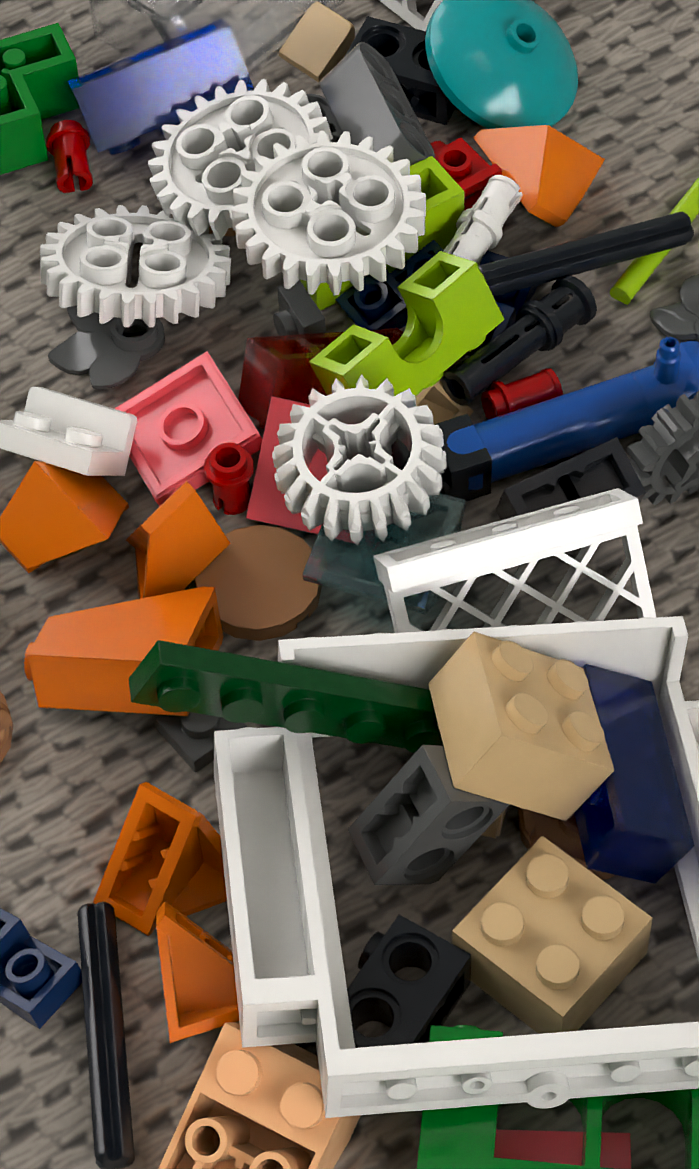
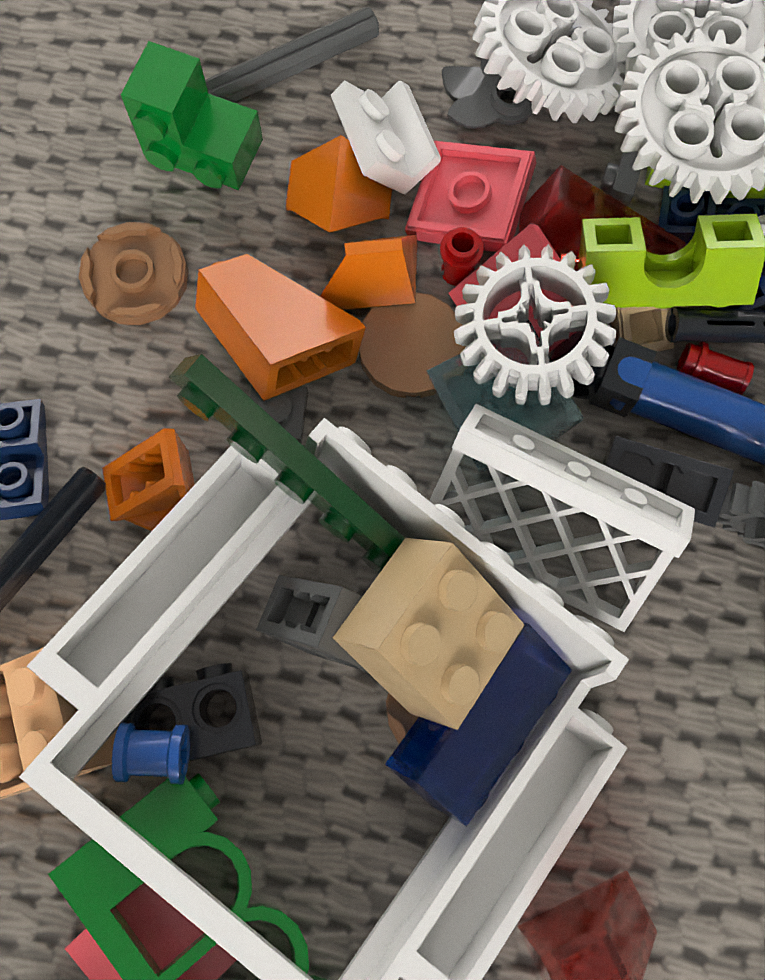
camera: 40 degrees right, 20 degrees up
(195, 976) = (69, 580): orange slope -> none
(401, 1014) = (150, 753): none -> blue bush
(552, 940) = (321, 782): tan brick -> none

